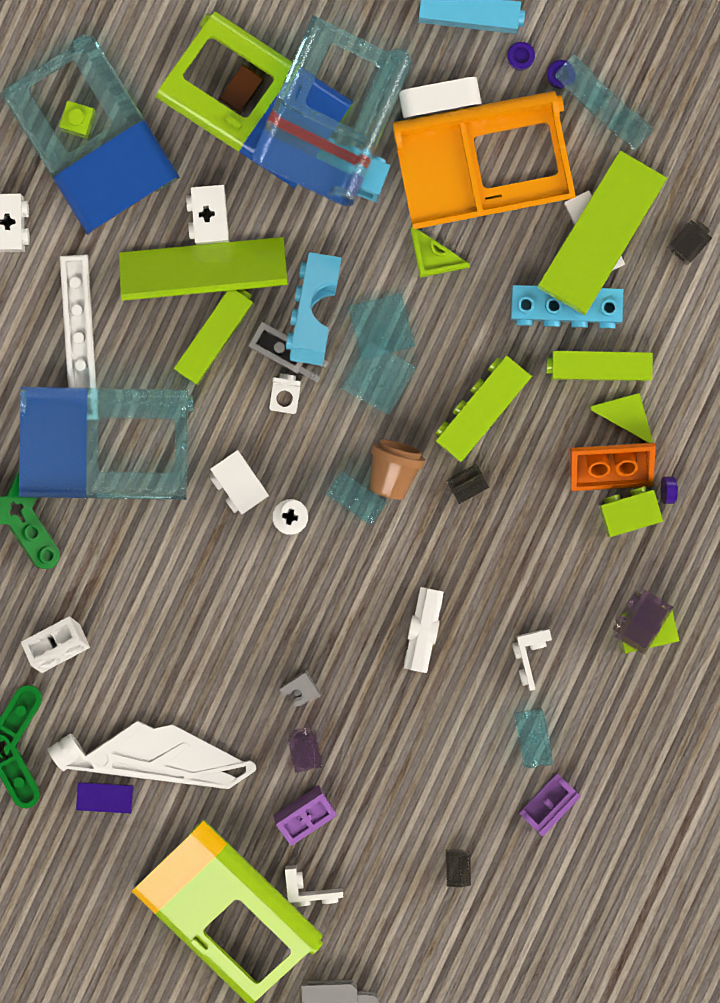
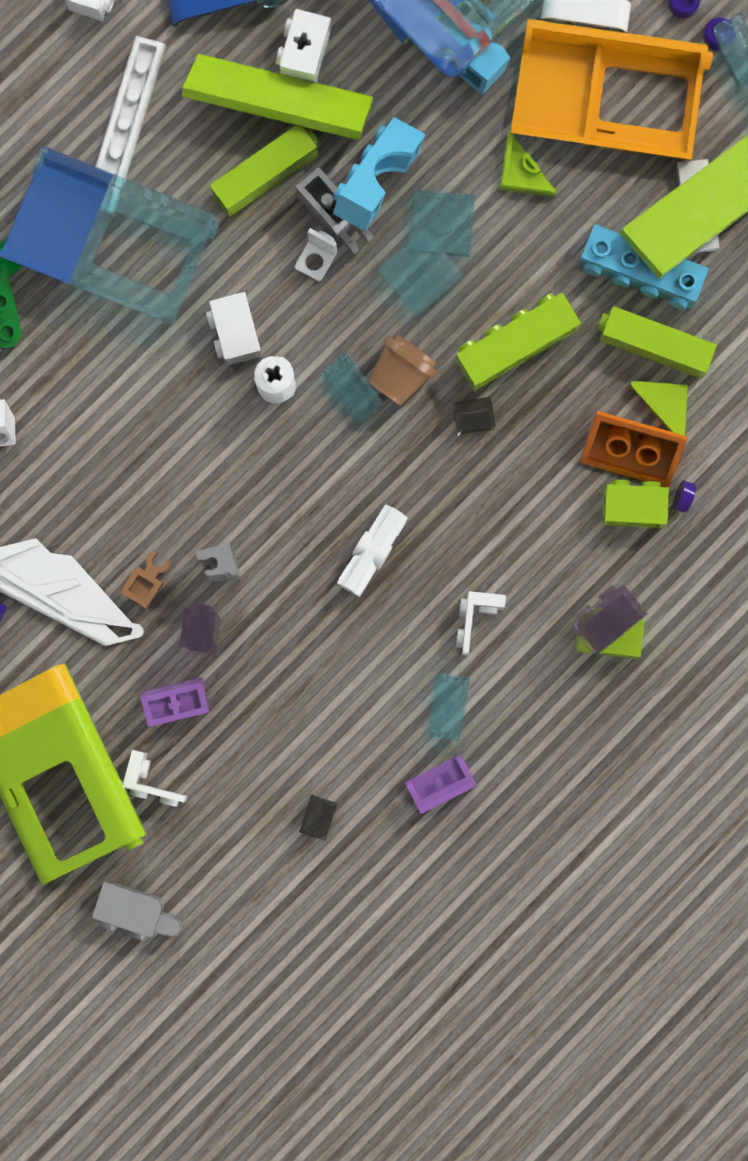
camera: 20 degrees right, 5 degrees down
(242, 727) = (143, 584): none -> medium nougat plate

